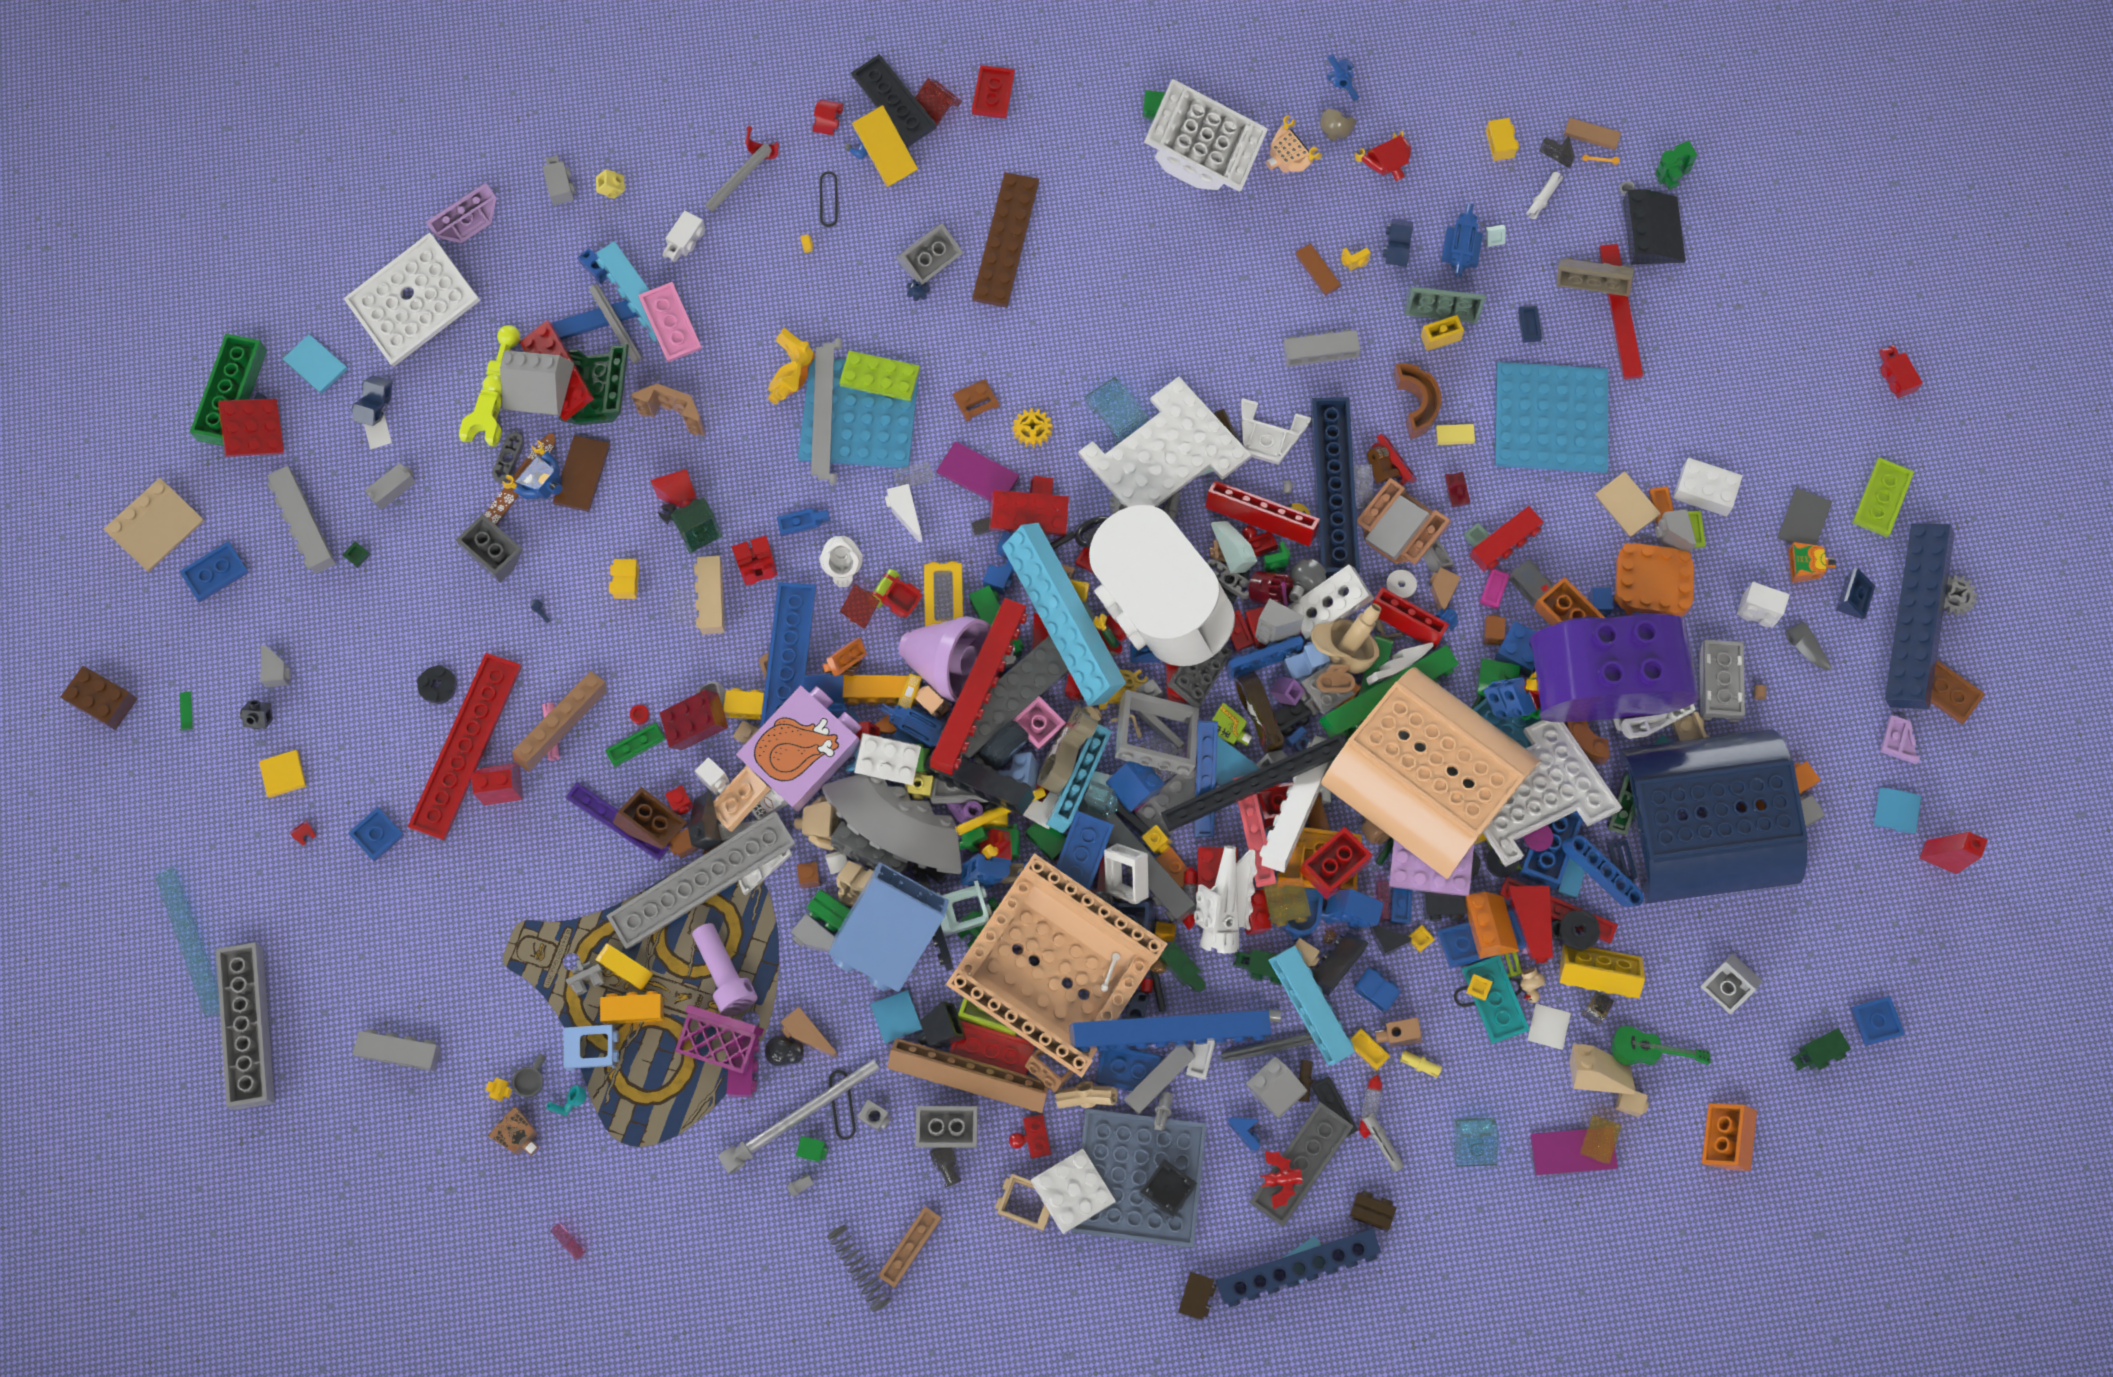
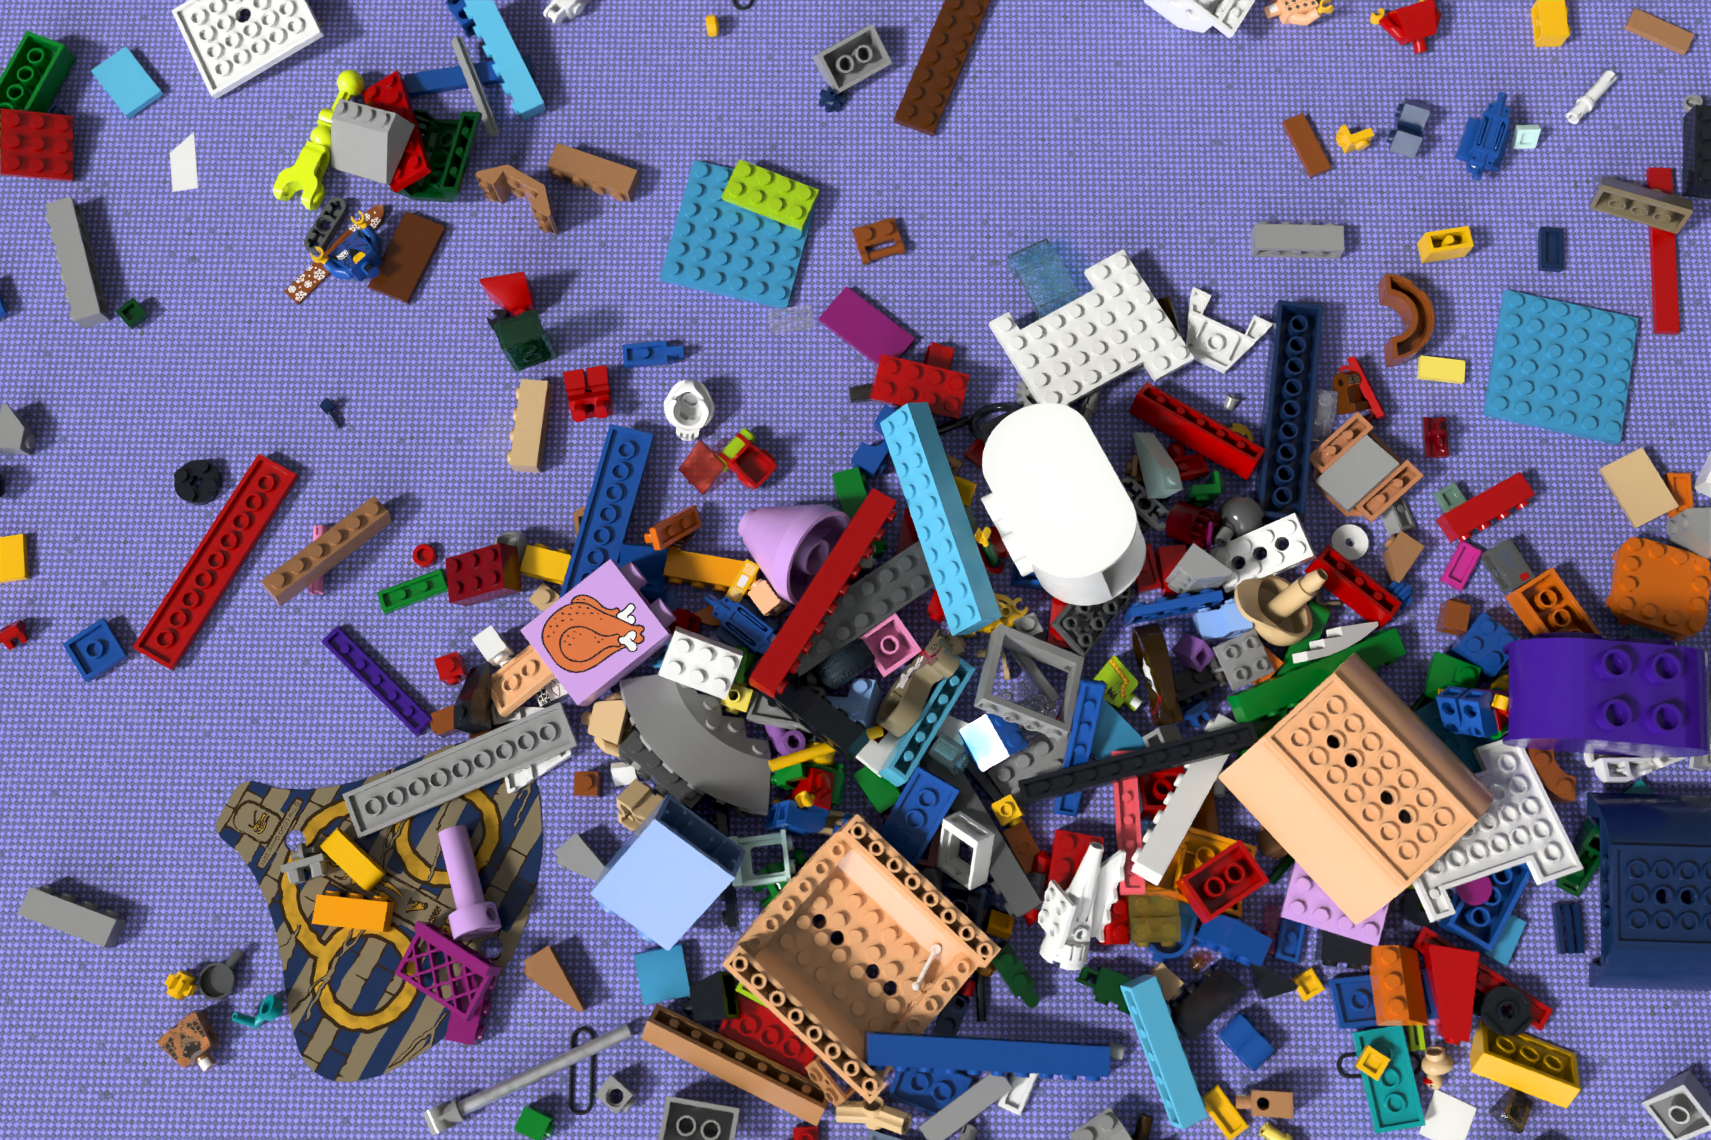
camera: 10 degrees right, 5 degrees up
(375, 394) = (187, 129): dark blue brick -> none
(391, 485) = (185, 238): light grey brick -> none
(490, 548) = (284, 330): dark grey slope -> none
(497, 784) = (242, 613): slope -> none
(572, 1047) = (274, 947): light blue window -> none
(625, 578) = (434, 390): yellow brick -> none
(649, 819) = (411, 687): reddish brown slope -> none
(670, 322) = (536, 93): bright pink plate -> none
(727, 380) = (593, 172): none -> medium nougat brick
(783, 1052) = (522, 994): black hair -> none
(793, 374) = (669, 178): yellow hips -> none
(823, 411) = (697, 227): light grey piece -> none
(828, 910) = (603, 831): green brick -> none
(903, 508) = (772, 356): white slope -> none
(943, 592) = (802, 468): piece -> none
(1032, 420) = (949, 285): yellow gear -> none
(1267, 1047) = (1100, 1089): dark grey axle -> none
(1336, 680) = (1256, 653): medium nougat bracket -> none
(1443, 304) = (1453, 210): sand green slope -> none
(1561, 153) = (1619, 50): clear smoke slope -> none
(1602, 600) = (1591, 600): blue brick -> none
(1611, 872) = (1546, 943): blue beam -> none
(1615, 160) = (1680, 68): light orange hinge -> none
(1690, 727) = (1676, 779): tan bracket -> none

